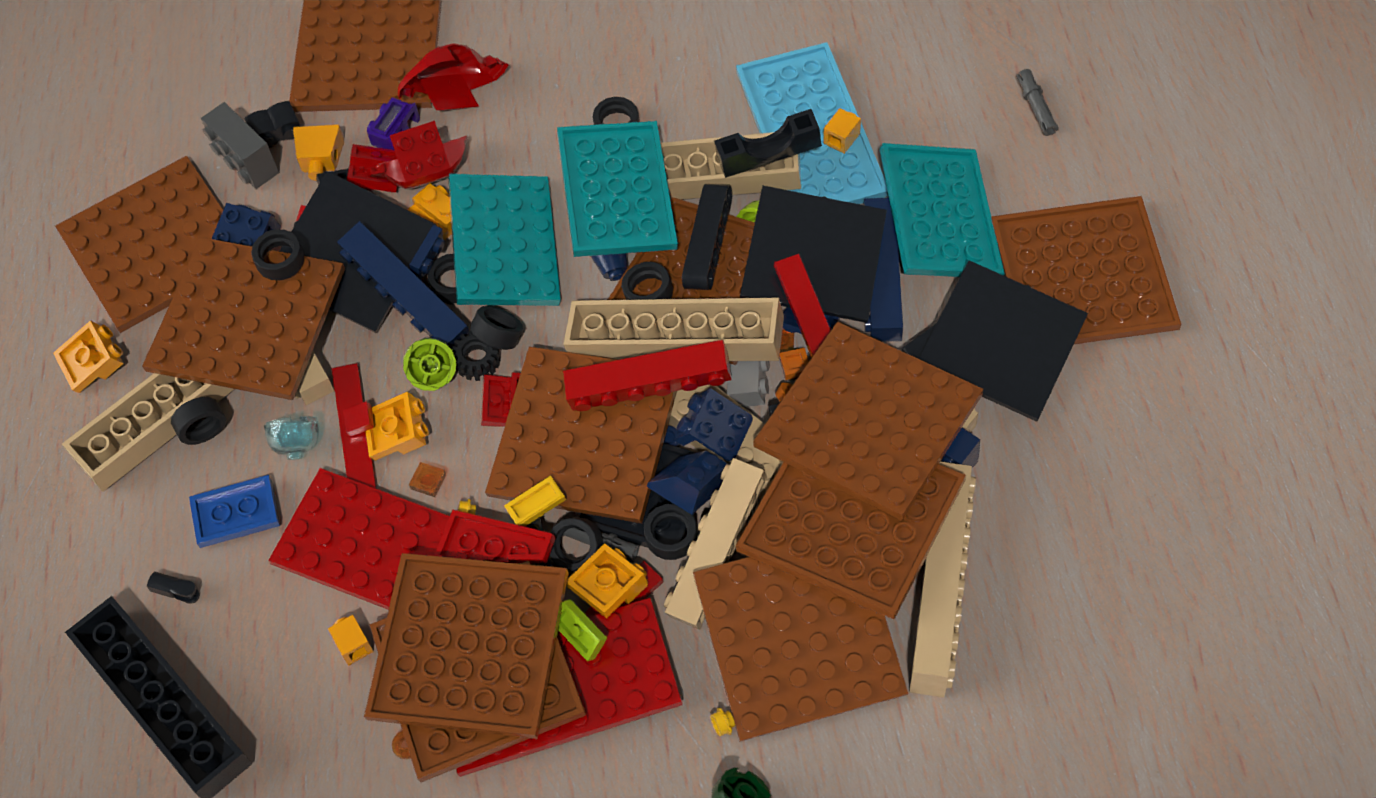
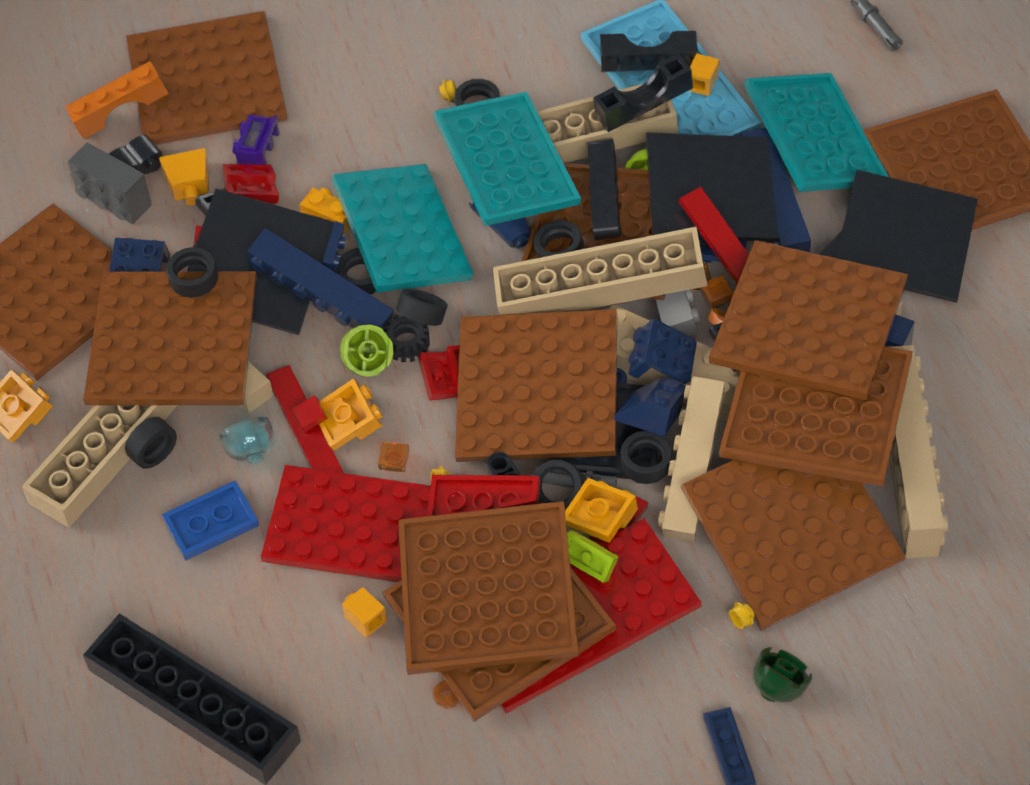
camera: 15 degrees left, 5 degrees down
(173, 587) = (171, 600): black bar -> none
(295, 50) = (93, 109): none -> orange arch
(420, 157) = (303, 164): red animal -> none
(450, 74) = (302, 83): red animal -> none
(535, 502) = (510, 453): yellow tile -> none
(590, 101) = (448, 89): none -> yellow plate
(647, 375) = (590, 318): red brick -> none
(766, 96) = (621, 54): none -> black arch

